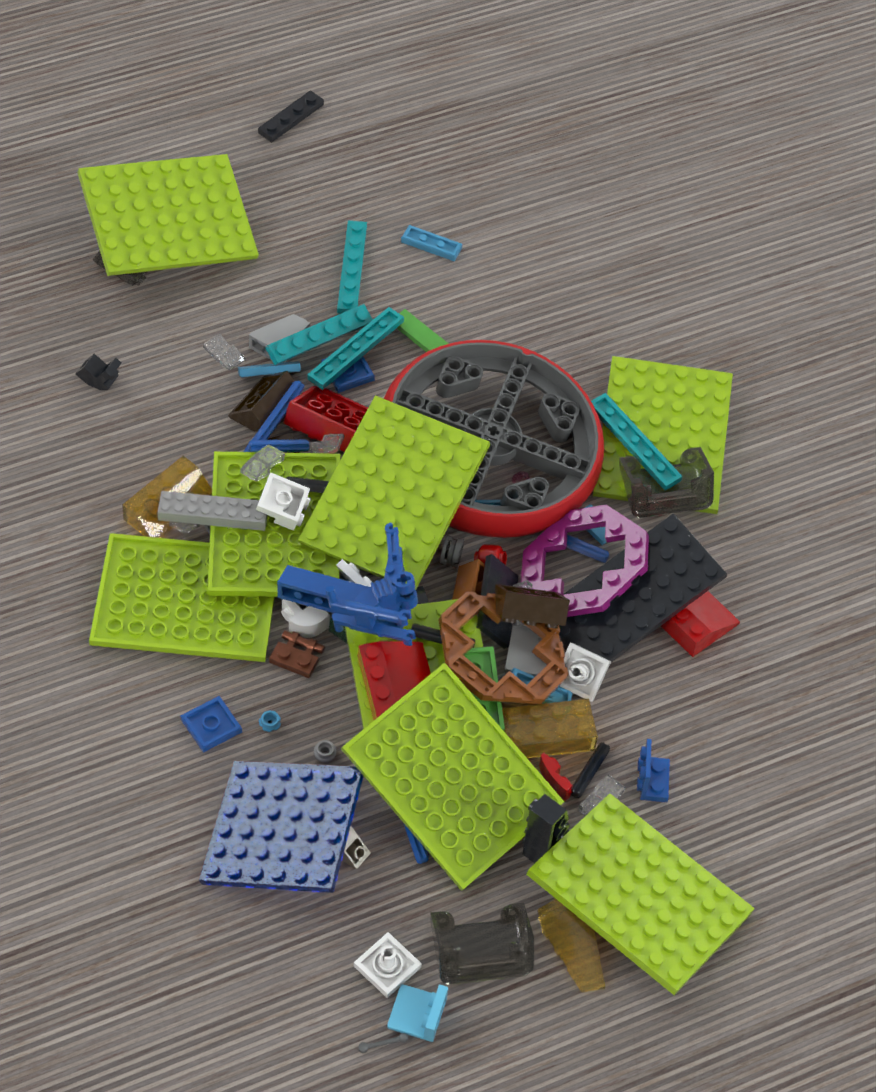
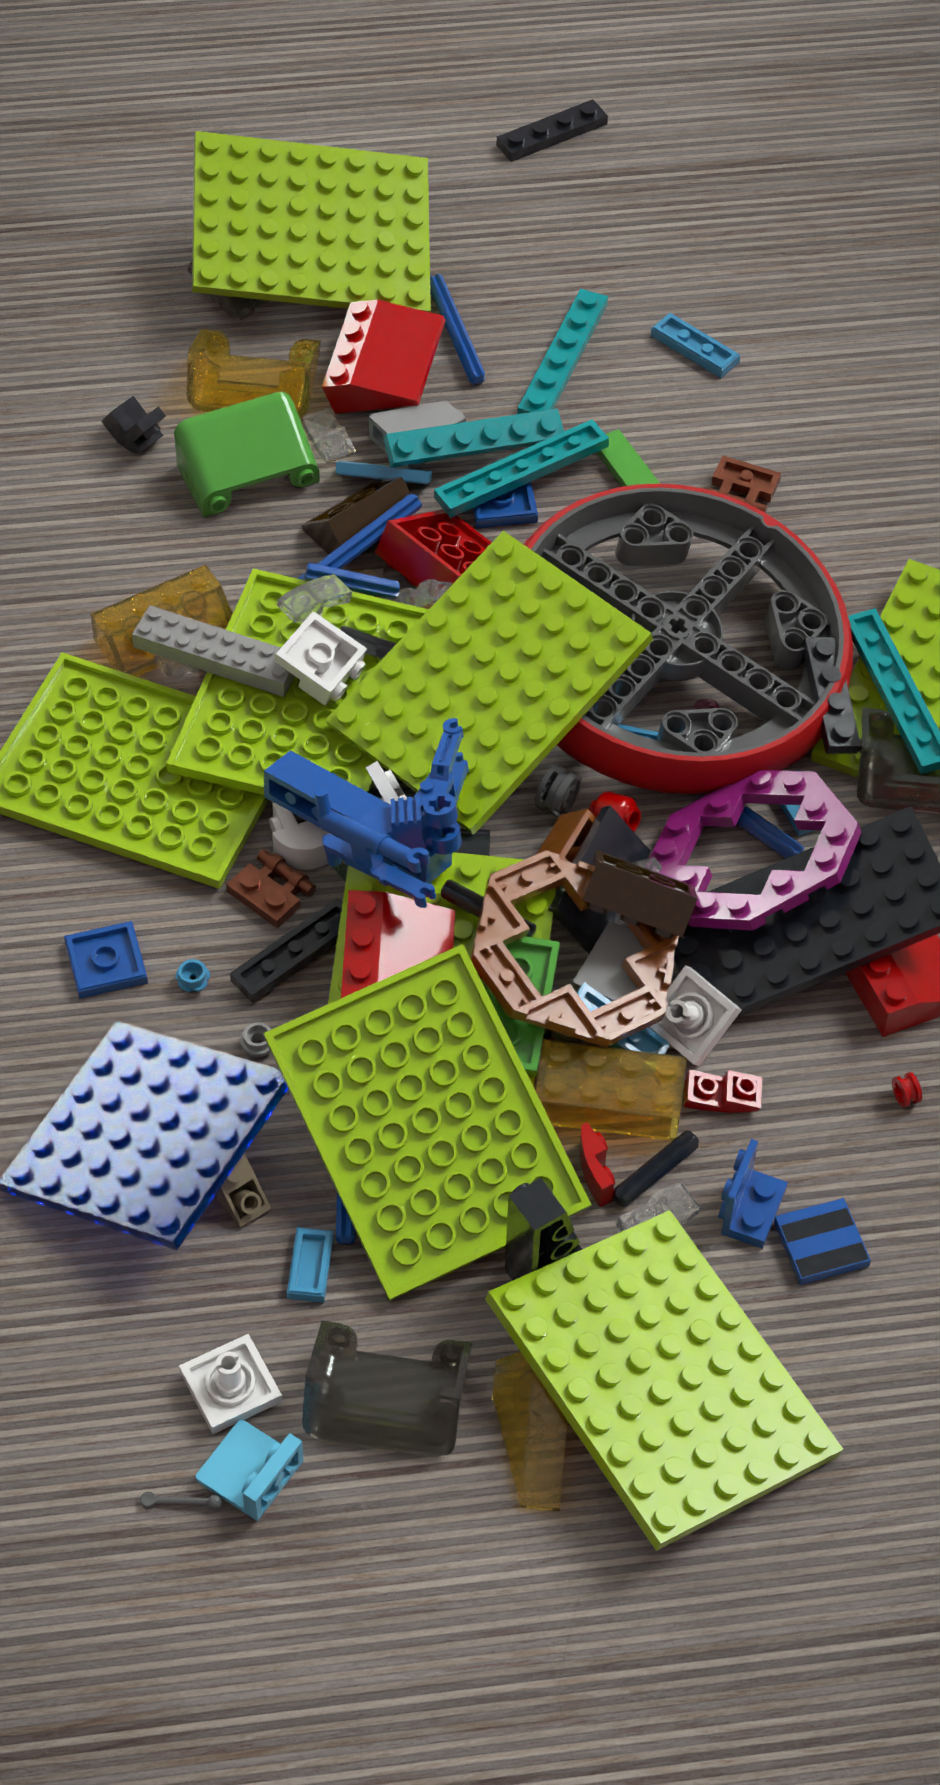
camera: 20 degrees right, 0 degrees up
(163, 327) = (224, 379): none -> clear yellow windscreen
(176, 374) = (243, 448): none -> bright green windscreen
(242, 293) = (381, 357): none -> red slope
(279, 264) = (456, 330): none -> blue axle
(325, 691) = (289, 953): none -> black plate
(407, 881) = (310, 1265): none -> dark azure tile
(494, 325) = (747, 480): none -> copper plate
(607, 471) = (839, 723): none -> black plate
(615, 714) = (731, 1093): none -> red slope
(700, 789) = (822, 1241): none -> tile
(719, 686) = (907, 1089): none -> red bush

